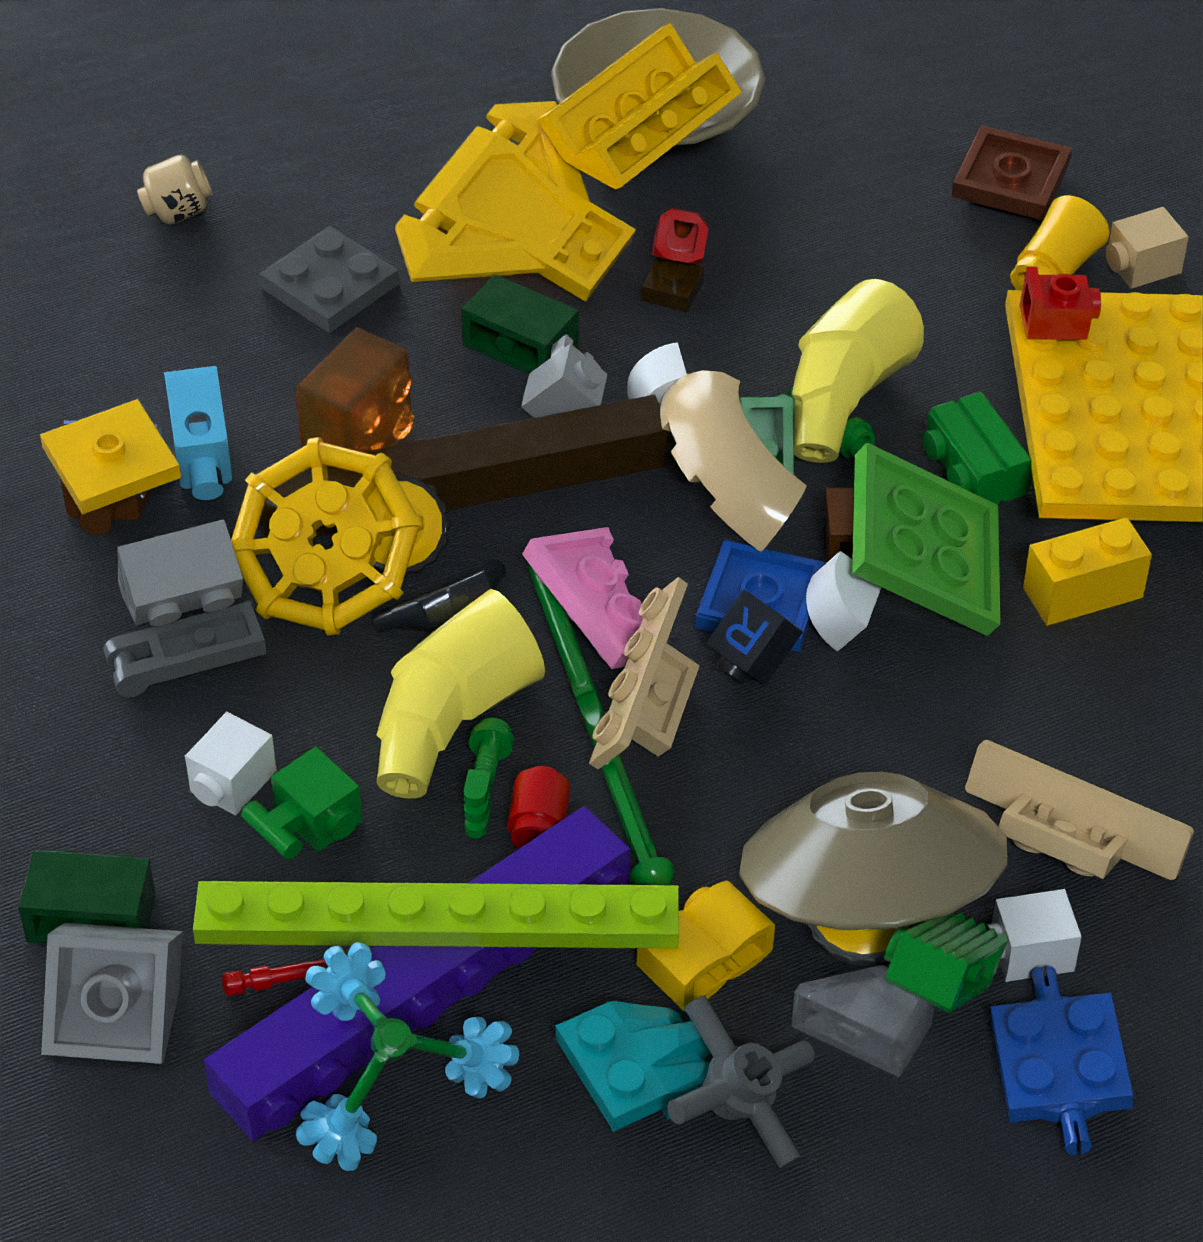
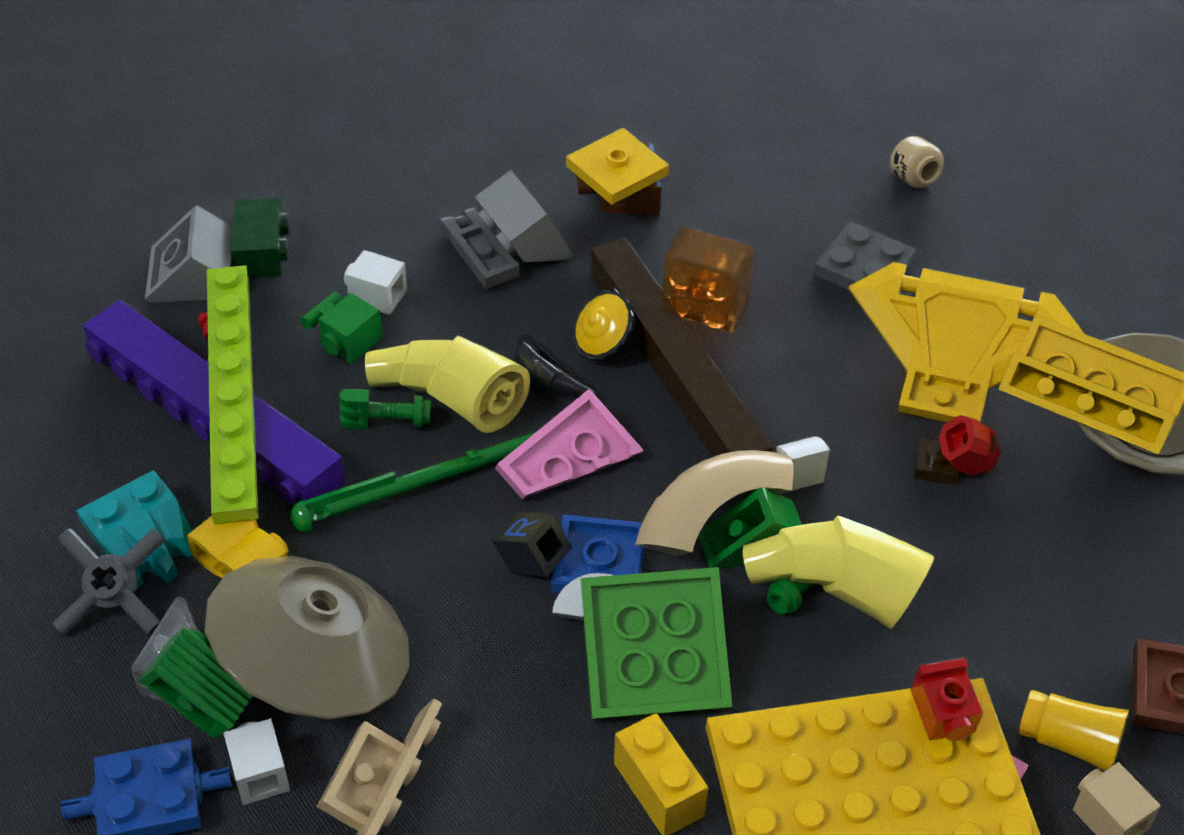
camera: 80 degrees right, 0 degrees up
(199, 446) = (661, 208): medium azure torso -> none
(347, 987) = (89, 382): medium azure plant -> none
(354, 544) = (572, 282): yellow plate -> none
(516, 324) = (841, 369): dark green brick -> none
(537, 803) = (356, 442): red brick -> none
(564, 382) = (775, 396): light grey brick -> none
(653, 685) = (472, 489): tan bracket -> none
(977, 449) = (796, 676): green brick -> none

